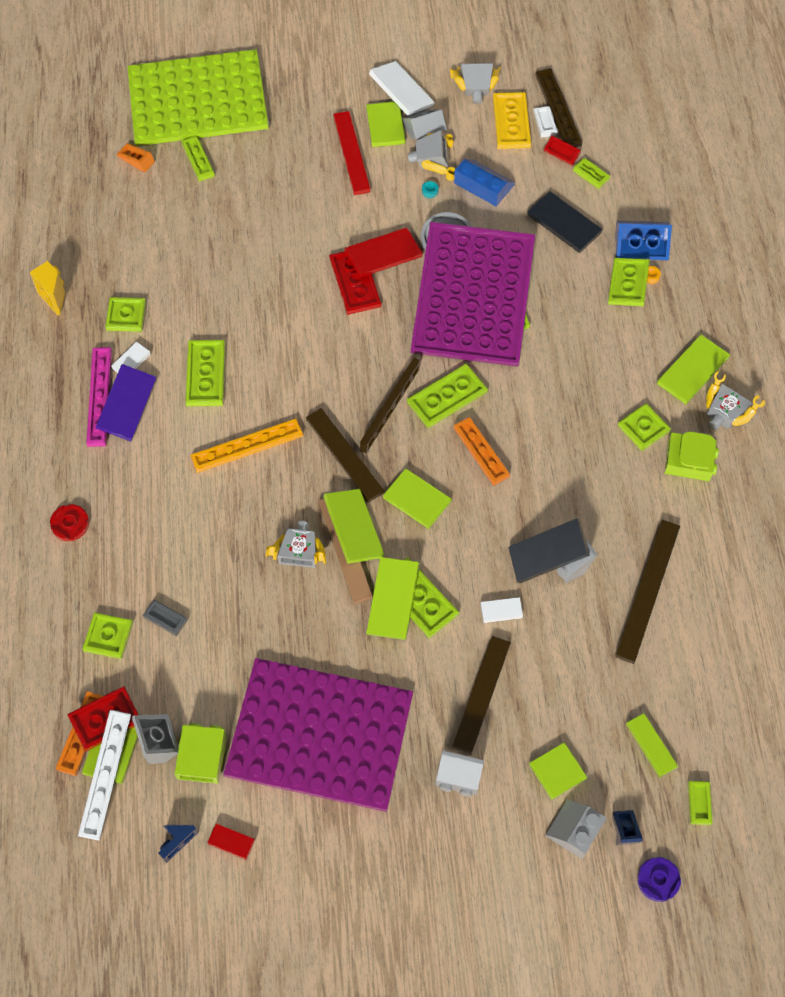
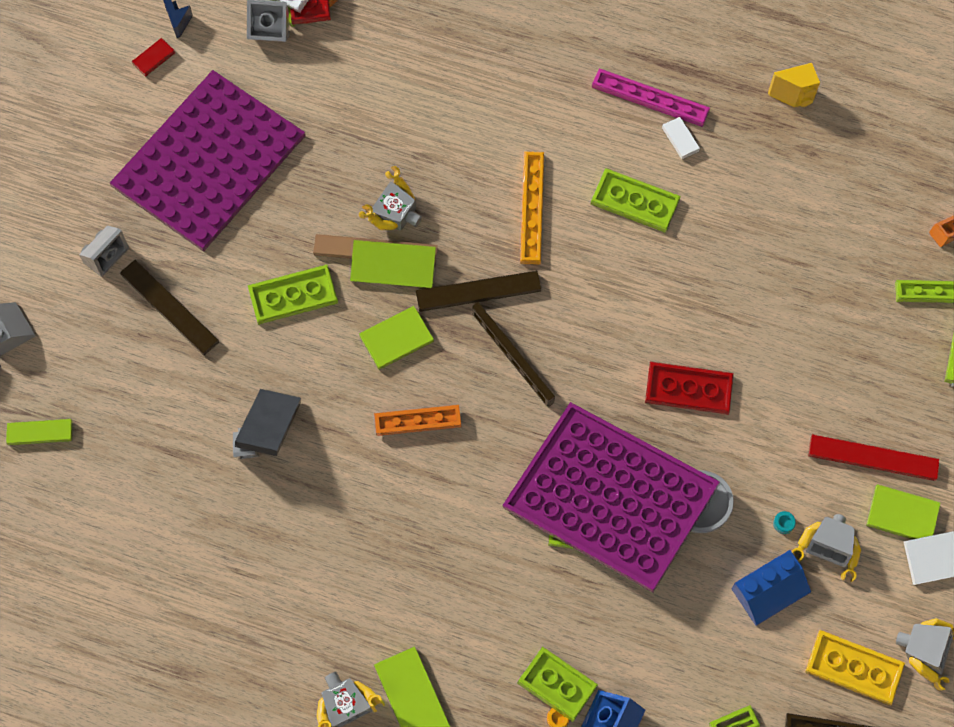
camera: 115 degrees right, 5 degrees up
(69, 522) = (520, 31): red tile -> none
(107, 635) = (390, 26): lime tile -> none
(125, 314) = (740, 151): lime tile -> none
(126, 402) = (629, 115): dark purple tile -> none
(165, 618) = (384, 76): dark grey tile -> none
(200, 753) = (235, 54): lime brick -> none
(383, 252) = (711, 429): red tile -> none
(393, 598) = (299, 267): lime tile -> none
(424, 122) = (883, 555): light grey slope -> none
(447, 395) = (501, 419): lime tile -> none
(501, 610) = (240, 362): white tile -> none
(545, 122) = (836, 707): white tile -> none
(557, 771) = (63, 338): lime tile -> none
(562, 150) = (781, 703): red tile -> none
(564, 222) = (674, 654): black tile -> none
(644, 427) = (368, 603): lime tile -> none
(647, 592) = (188, 510): dark brown tile -> none
(691, 455) = (305, 629): lime brick -> none

